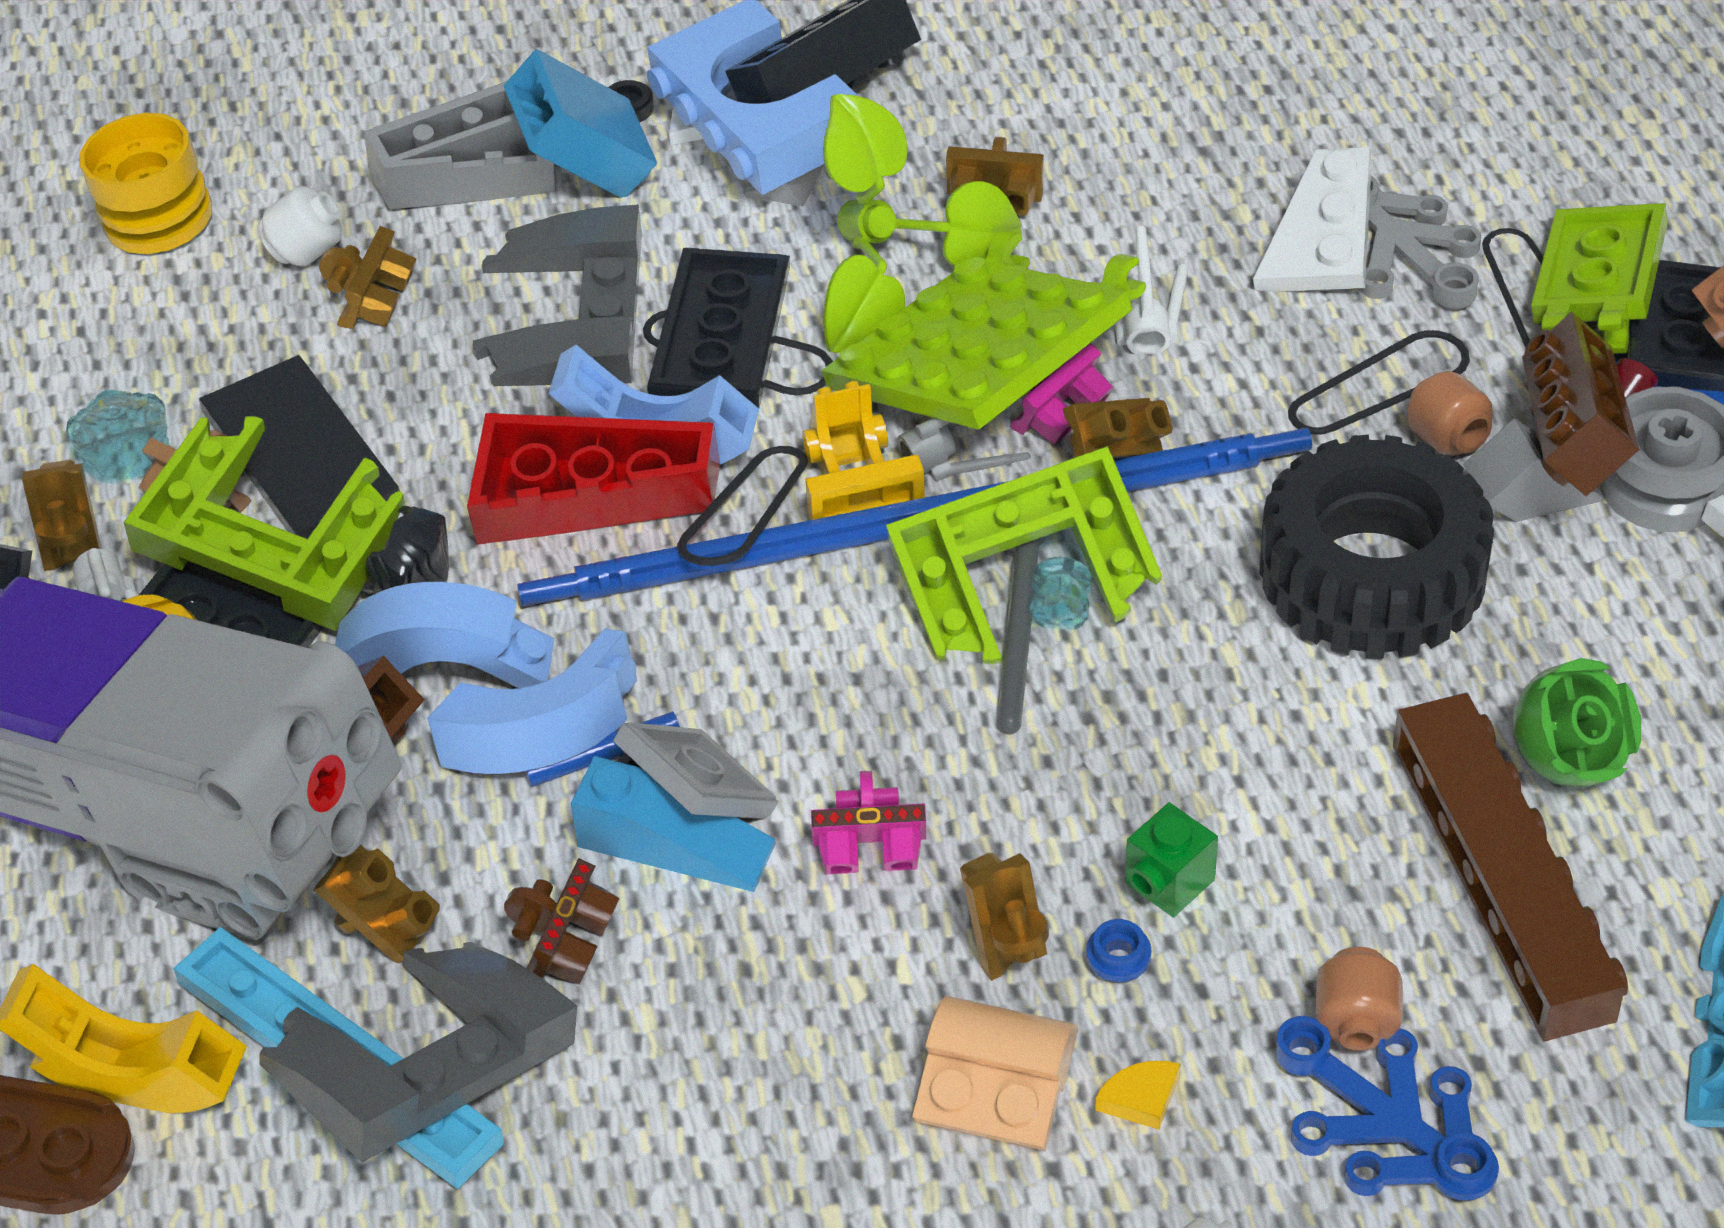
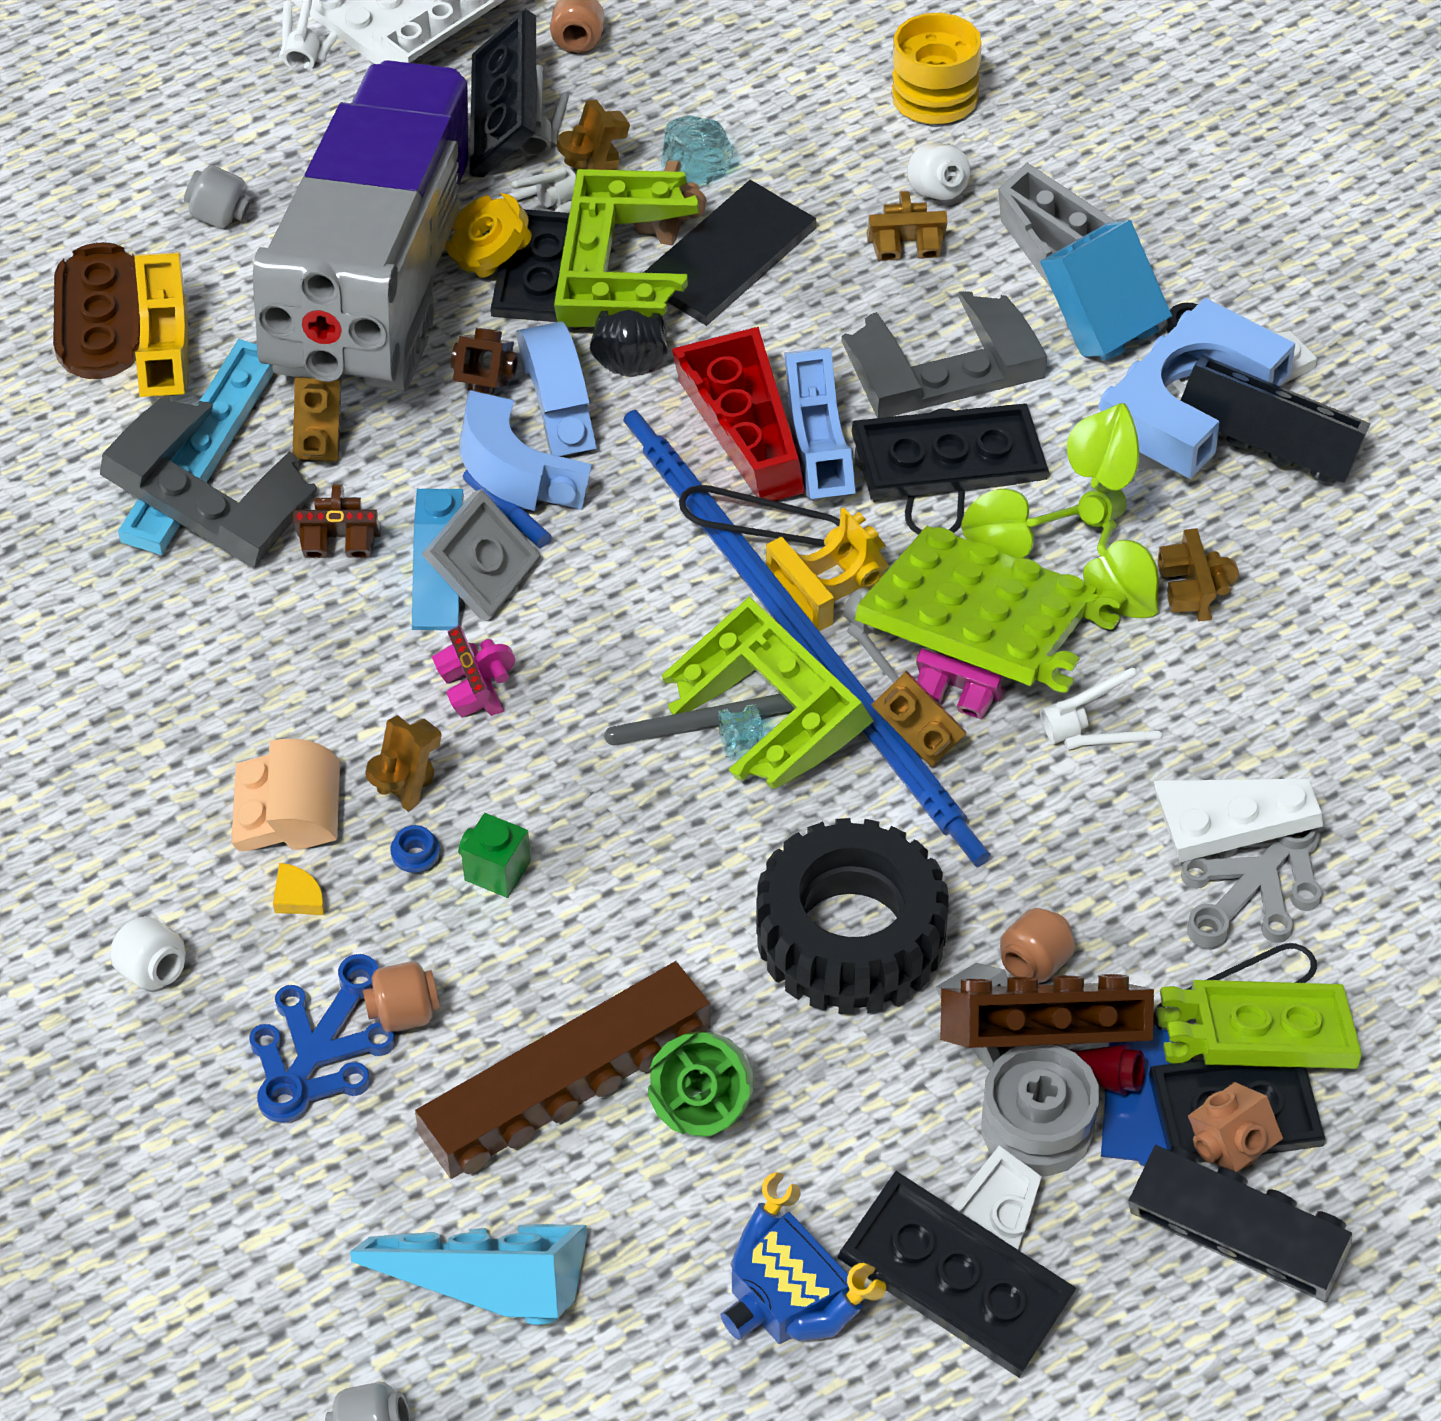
camera: 70 degrees right, 5 degrees up
(1292, 416) = (1124, 956): black piece -> none

